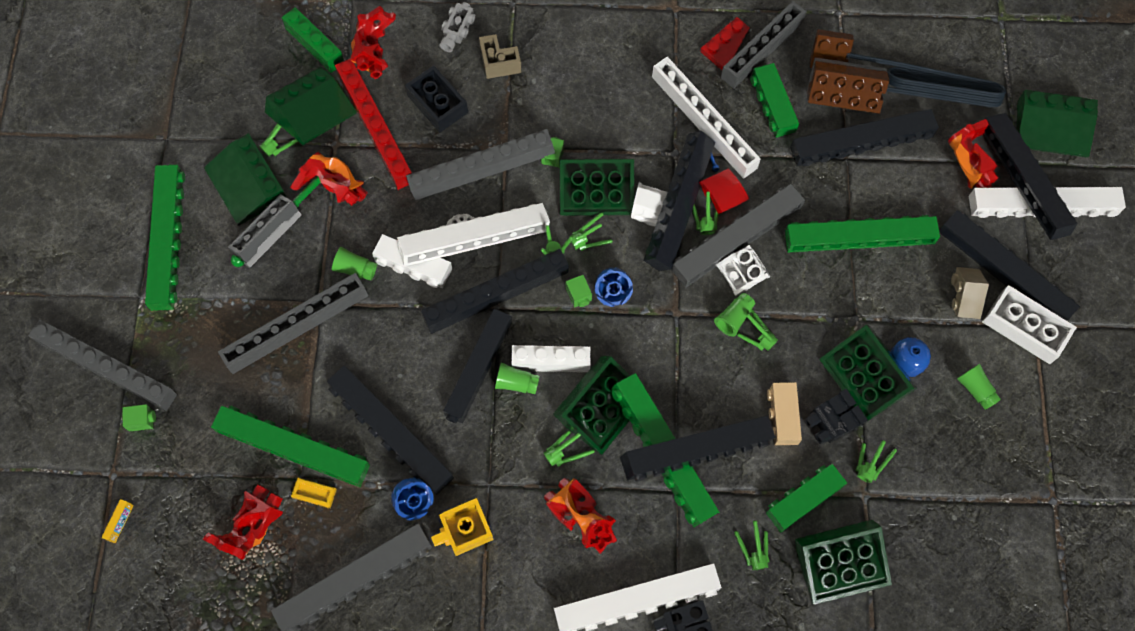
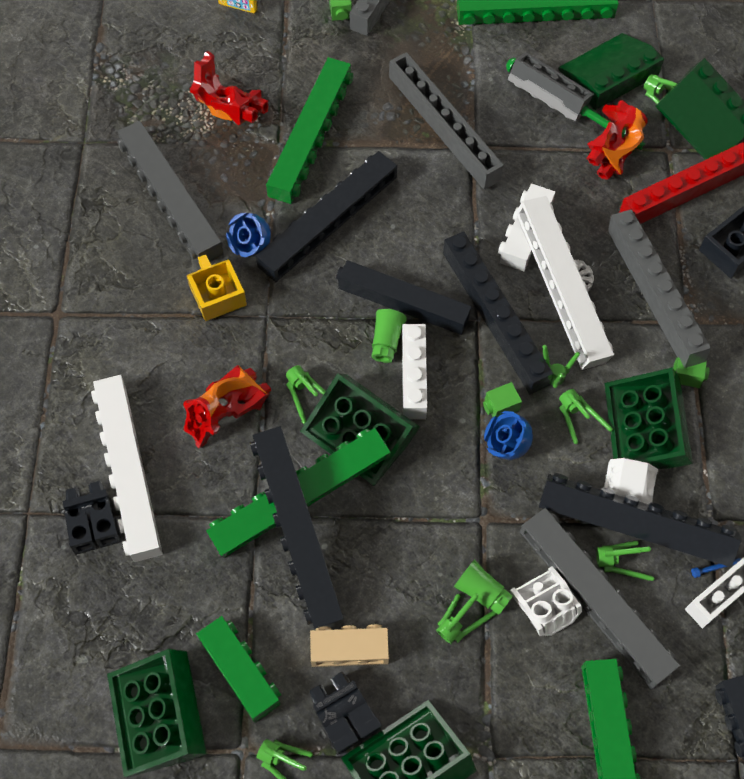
camera: 90 degrees right, 5 degrees down
(313, 493) = (262, 155): yellow tile -> none
(351, 263) = (518, 169): bright green plant -> none
(724, 190) = (660, 578): red slope -> none
(759, 559) = (165, 604): bright green plant -> none

